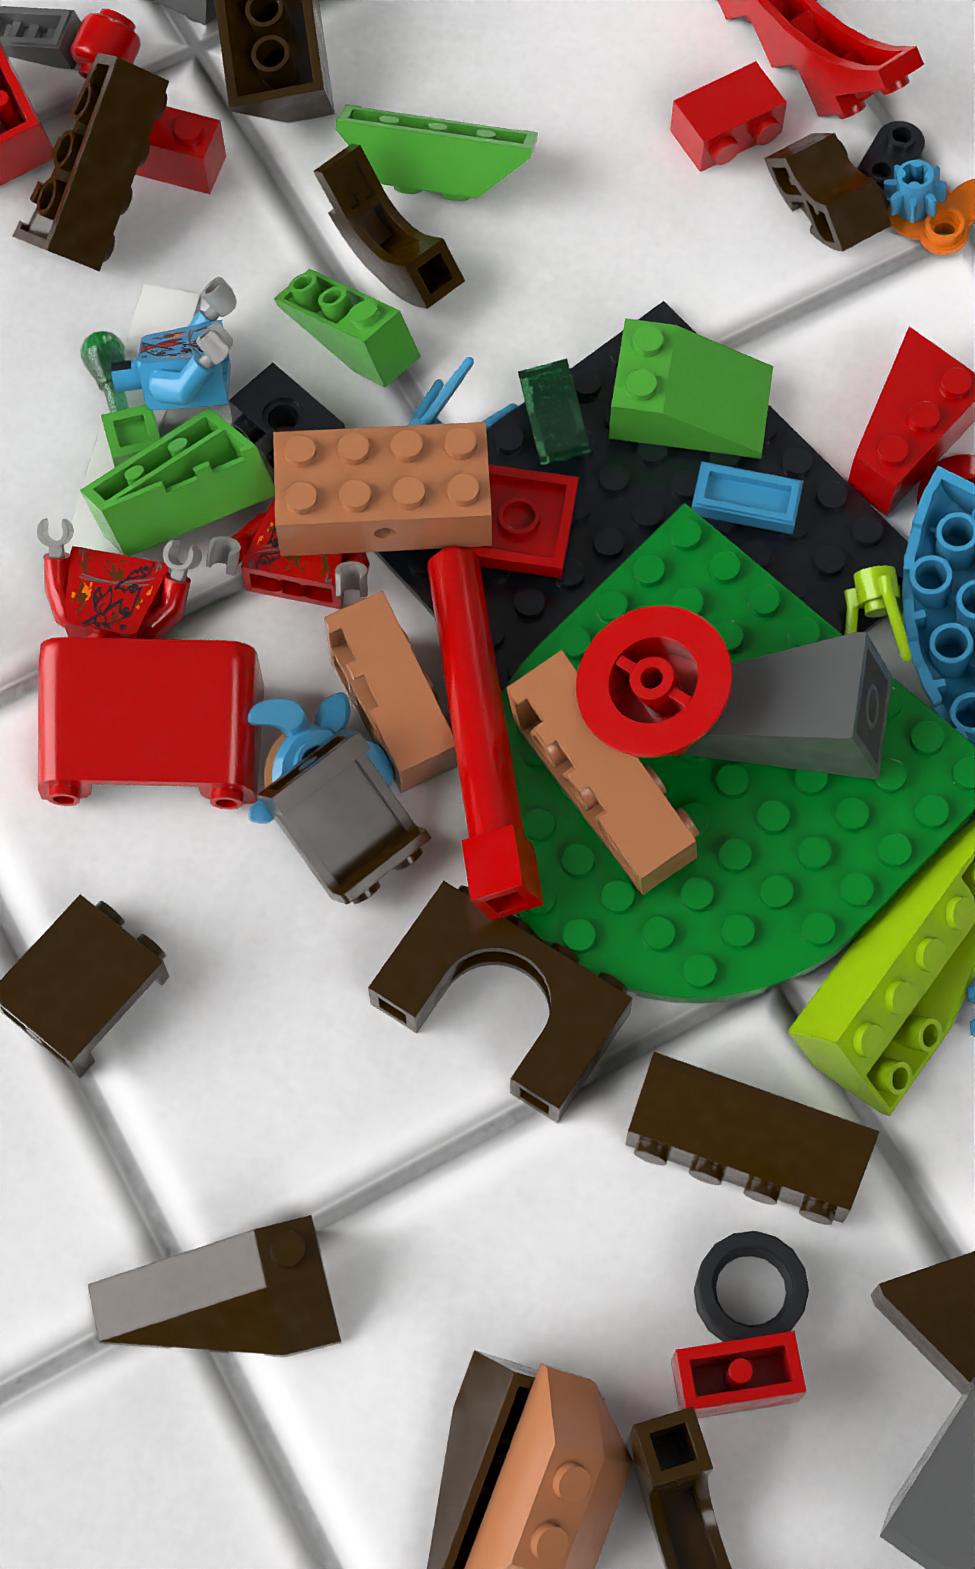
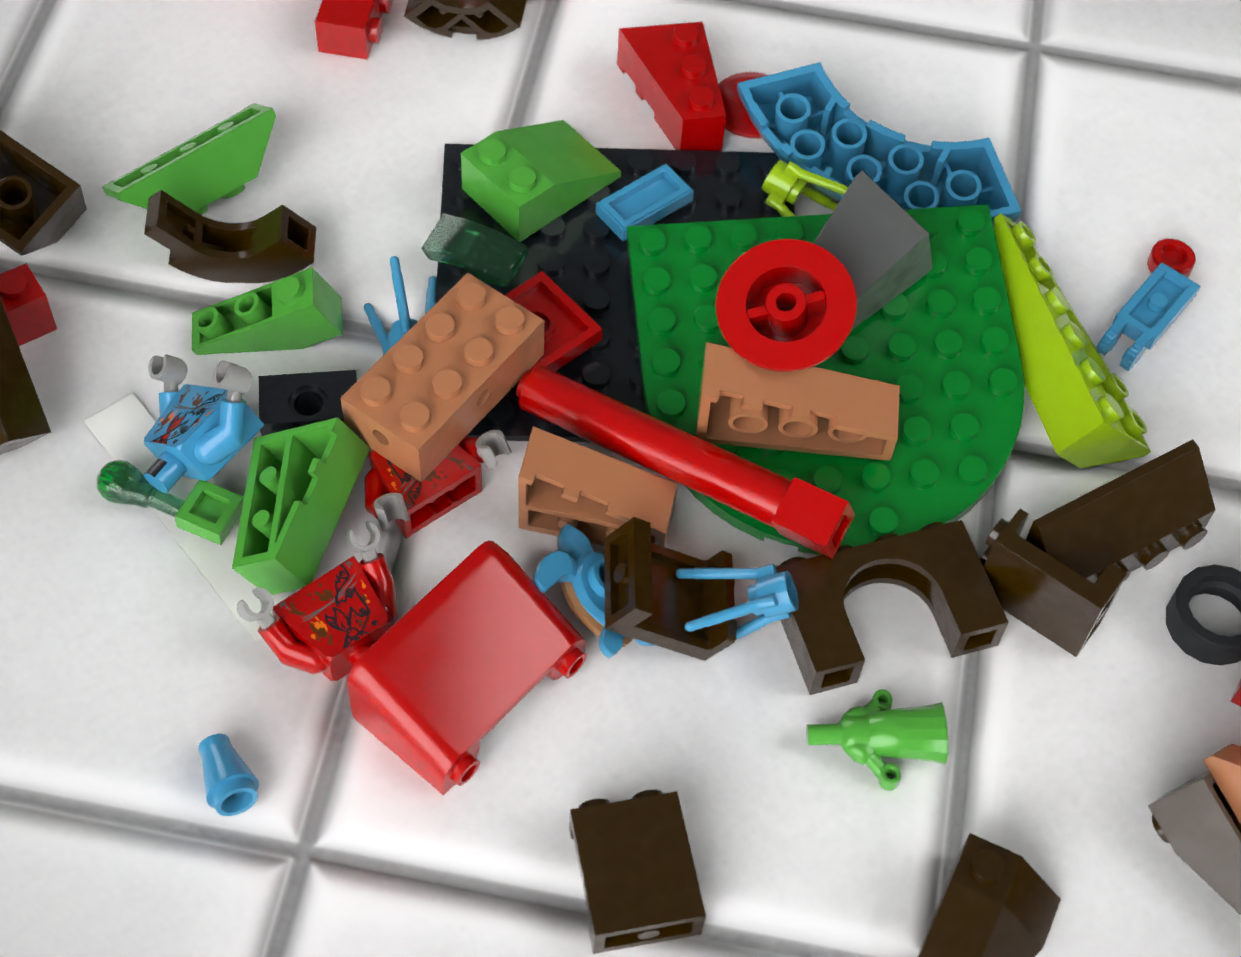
camera: 55 degrees left, 10 degrees down
(361, 1075) = (880, 732): none -> bright green piece
(397, 895) = (772, 596): none -> dark azure plant
(627, 1169) = (1044, 590): none -> dark brown panel

